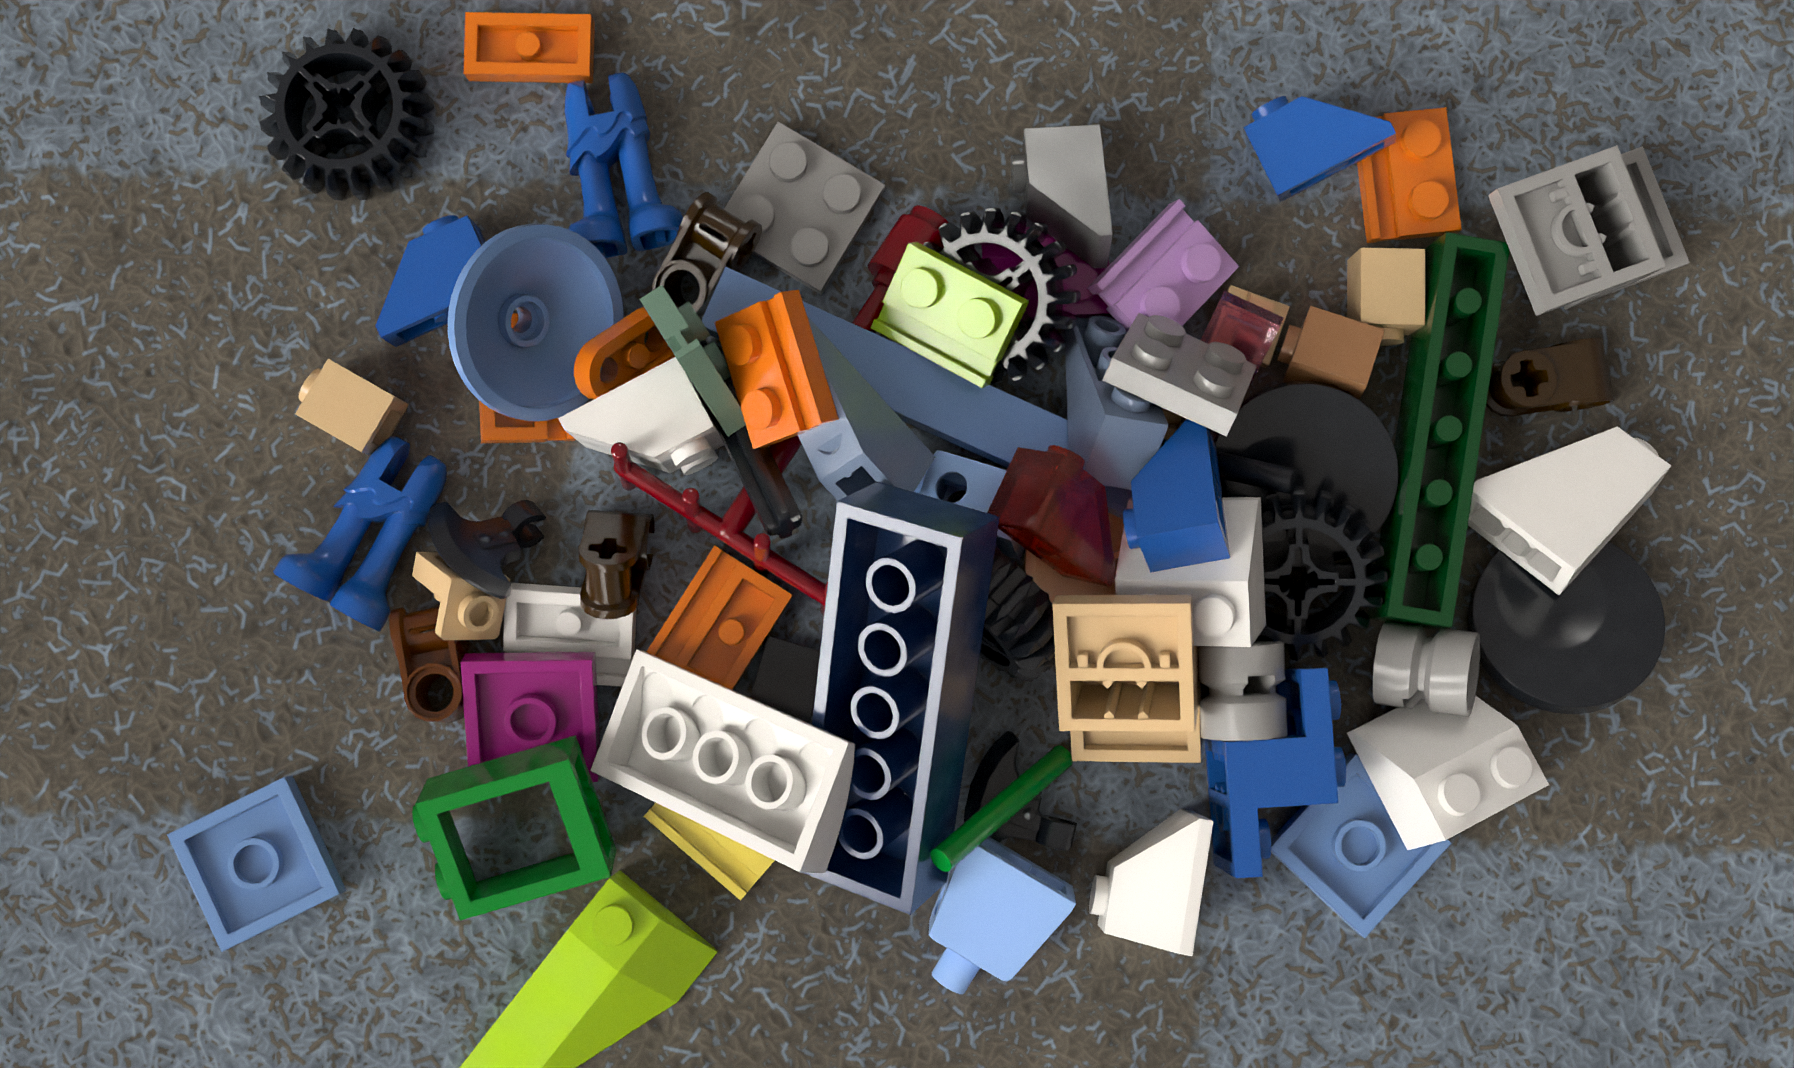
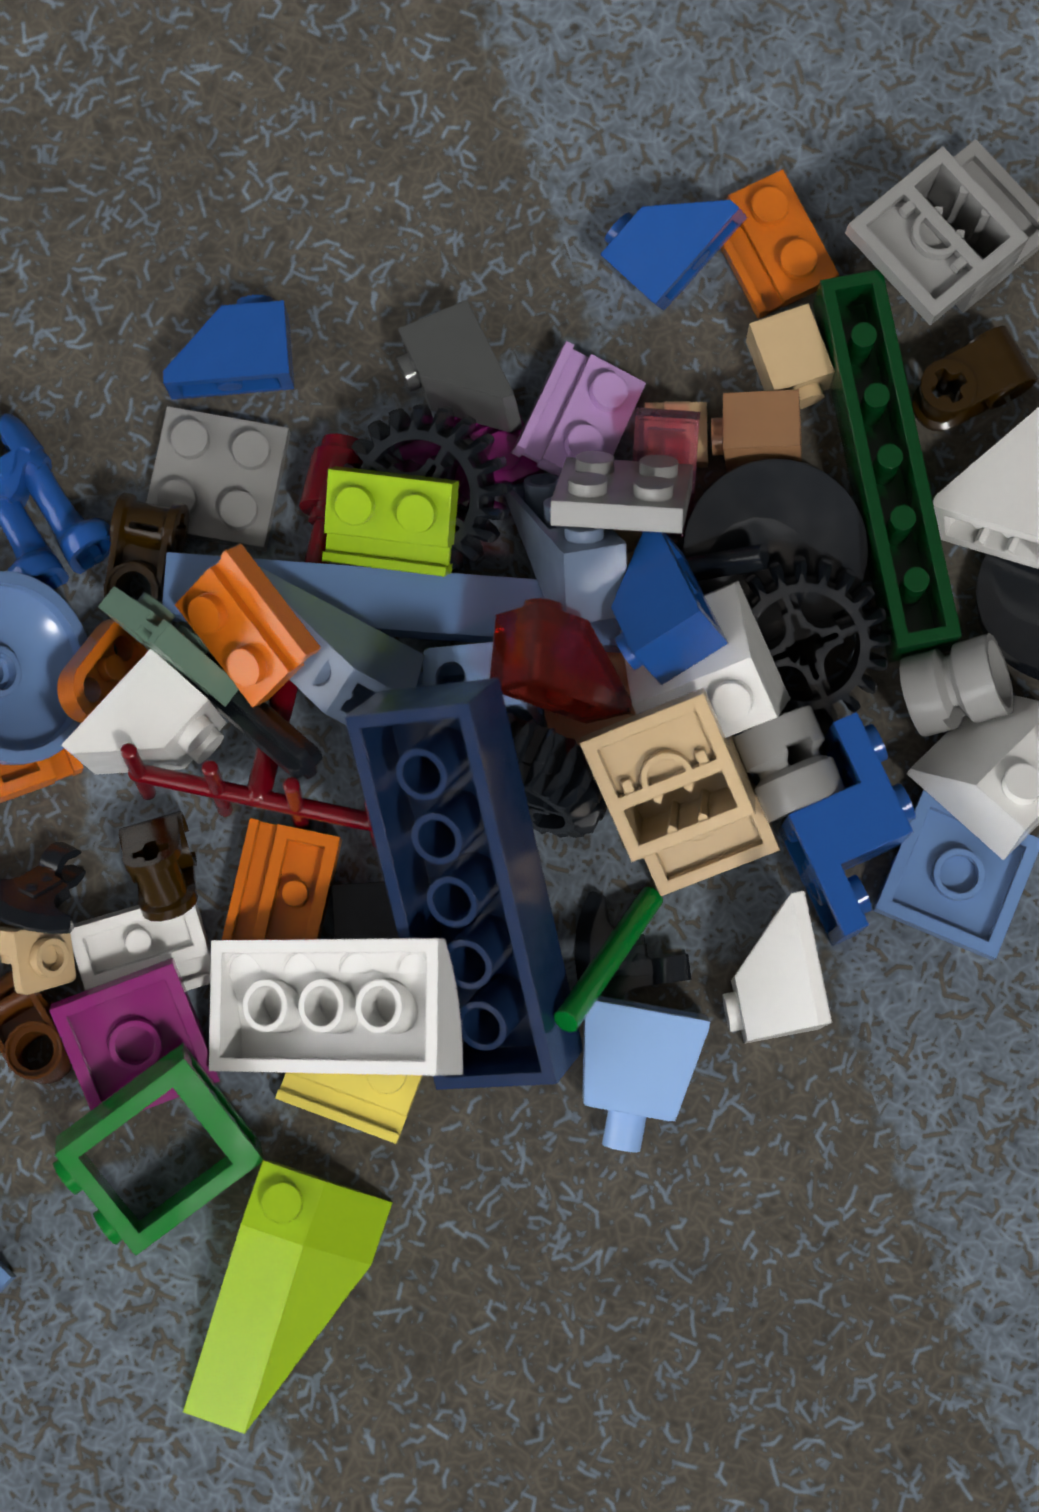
camera: 10 degrees left, 5 degrees down
(861, 93) = (235, 352): none -> blue slope

